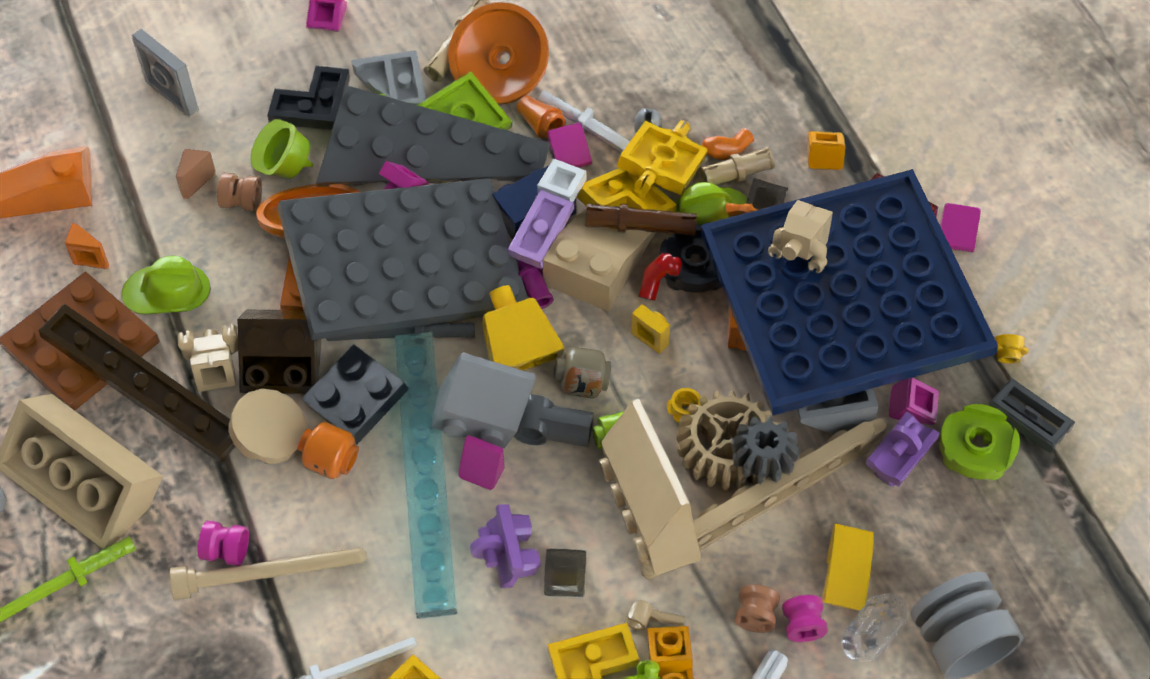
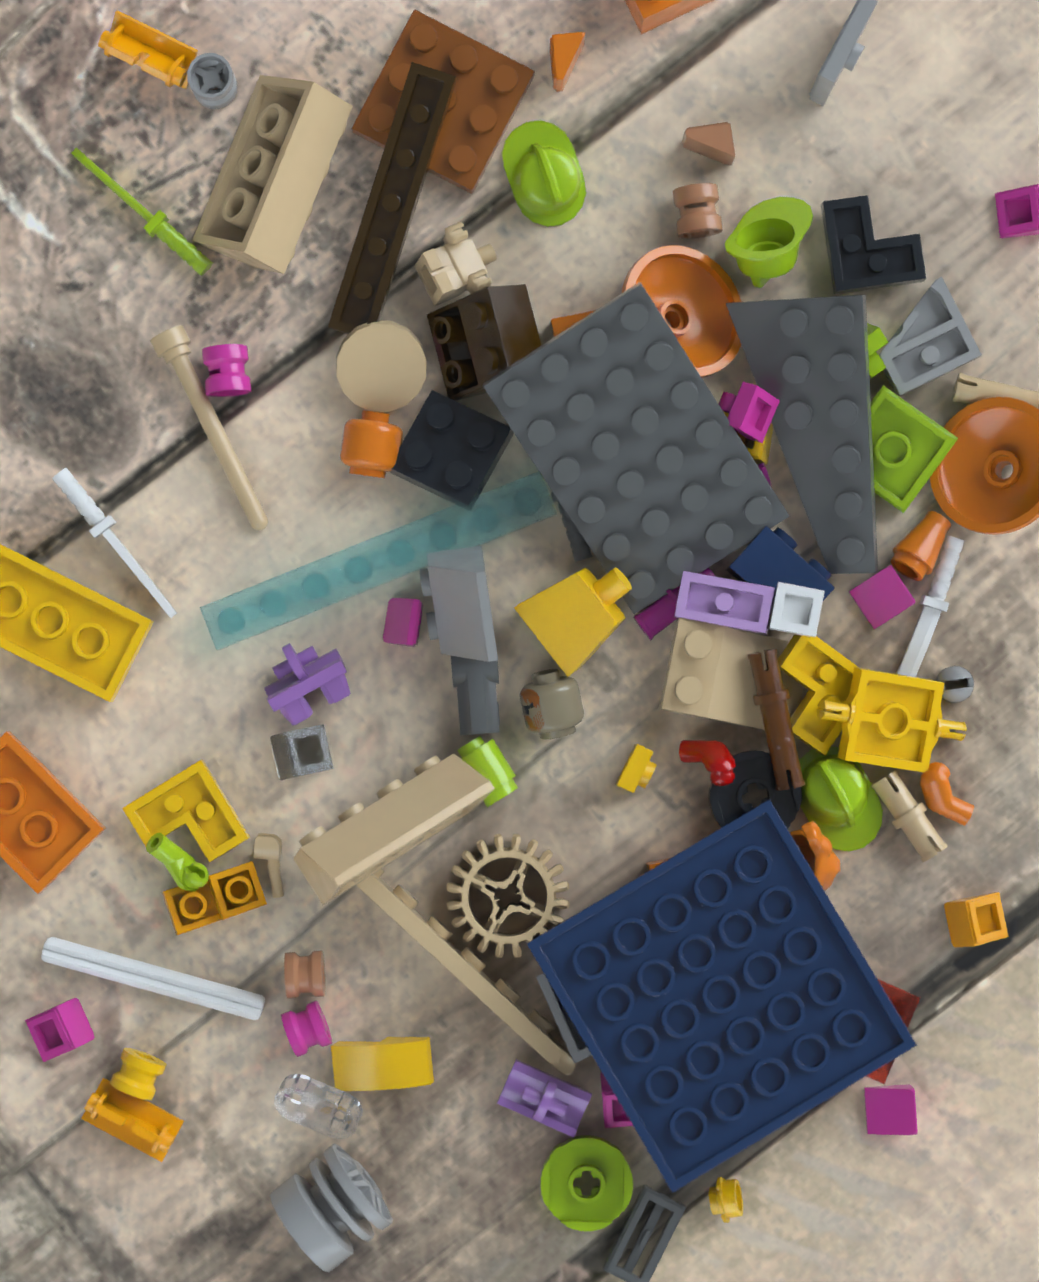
camera: 75 degrees right, 30 degrees up
(681, 398) = (554, 827): yellow plate -> none
(765, 449) = (464, 949): dark grey gear -> none
(766, 194) = (872, 862): clear smoke slope -> none
(803, 235) = (761, 932): tan piece -> none

